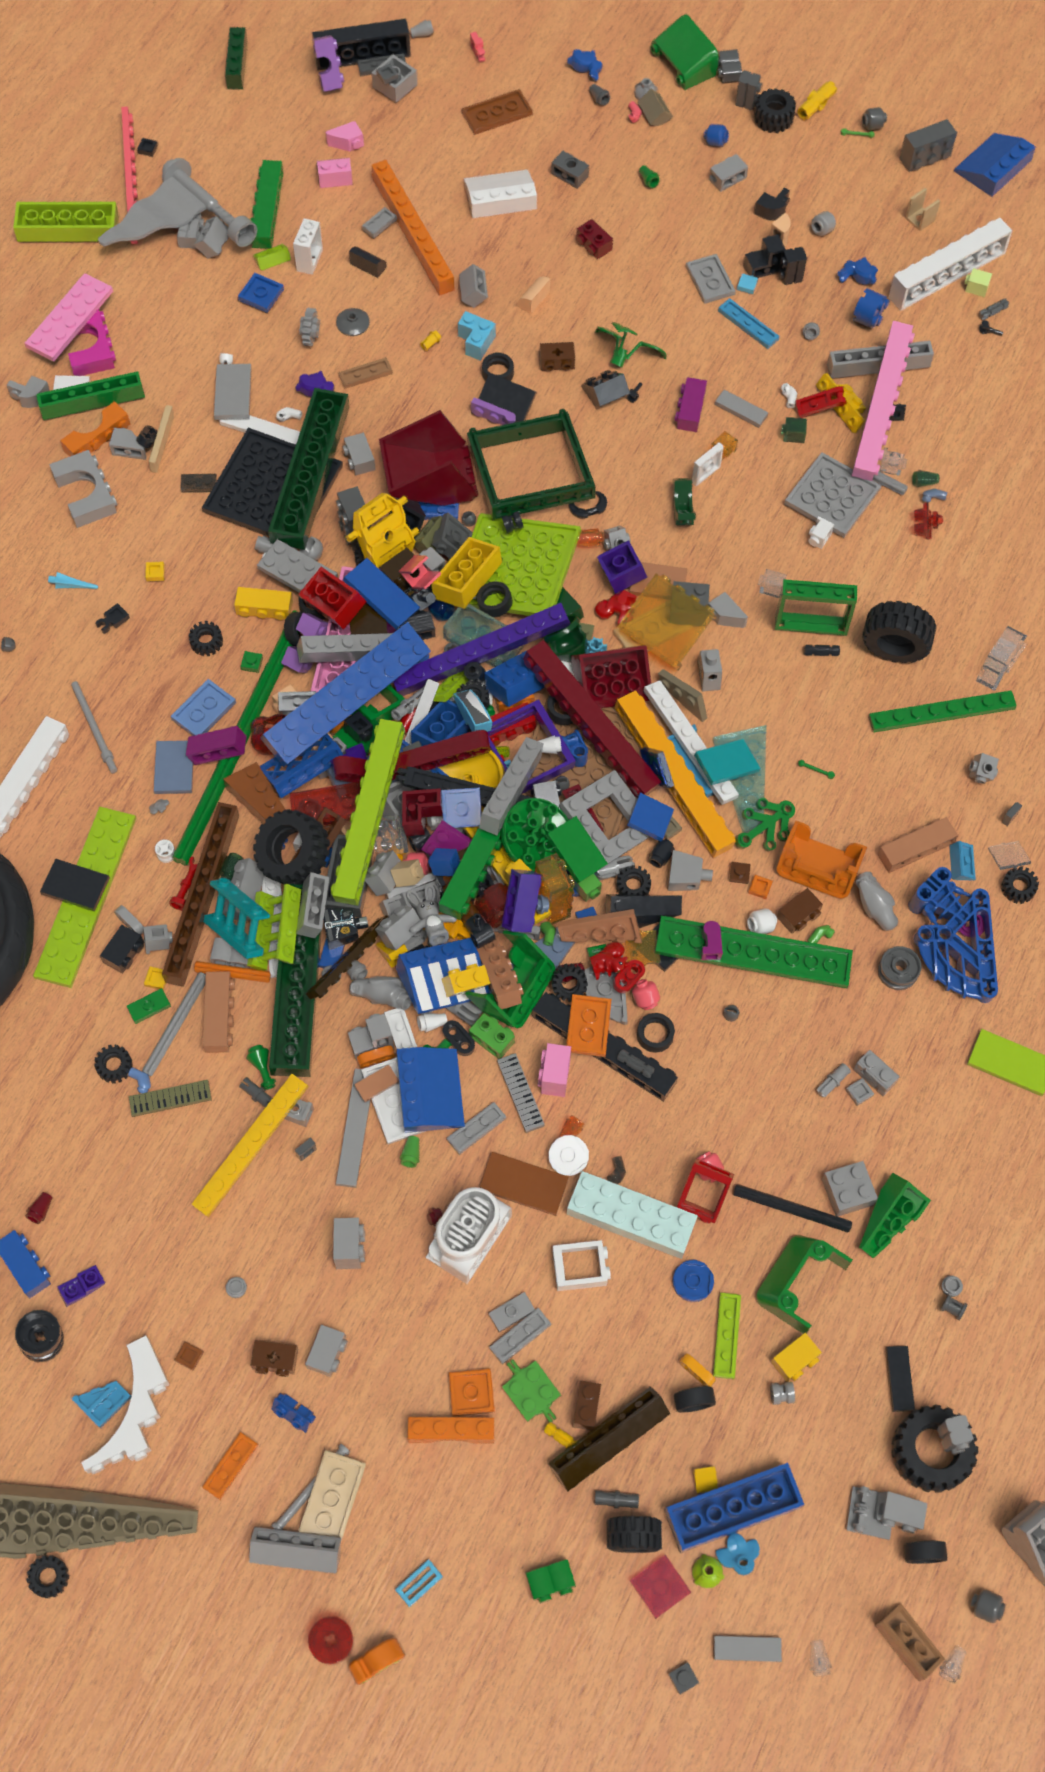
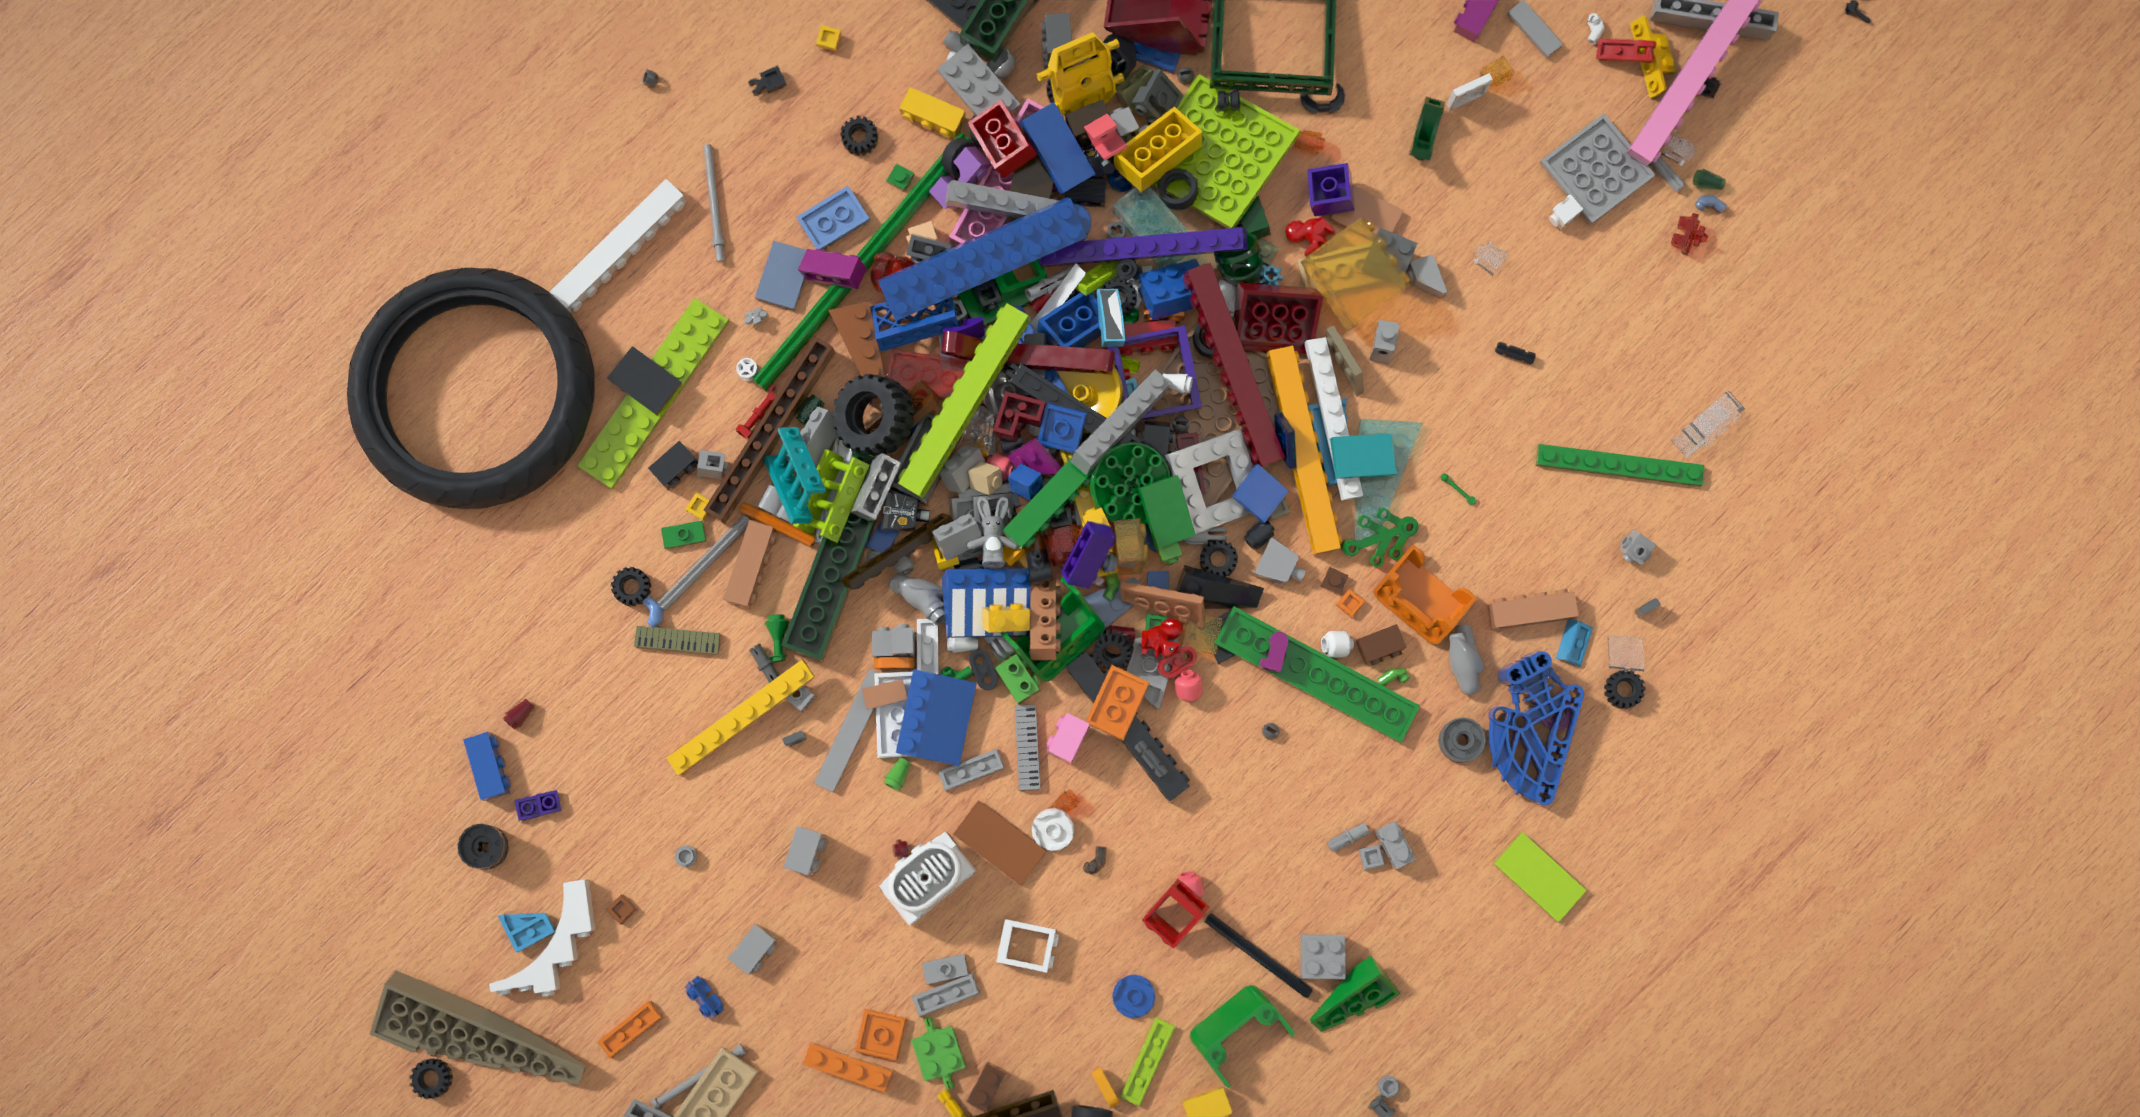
camera: 20 degrees right, 15 degrees up
(64, 581) = (728, 20): medium azure piece -> none
(129, 920) = (689, 436): light grey beam -> none
(265, 1350) = (692, 930): reddish brown brick -> none
(577, 746) = (1208, 385): blue piece -> none
(615, 537) = (1336, 151): light grey brick -> none
(631, 1215) = (1095, 911): light aqua brick -> none
(655, 1018) = (1169, 728): black tyre -> none
(794, 430) = (1583, 75): clear green brick -> none
(816, 592) = (1522, 308): green window -> none
(899, 631) = (1603, 365): black tyre -> none

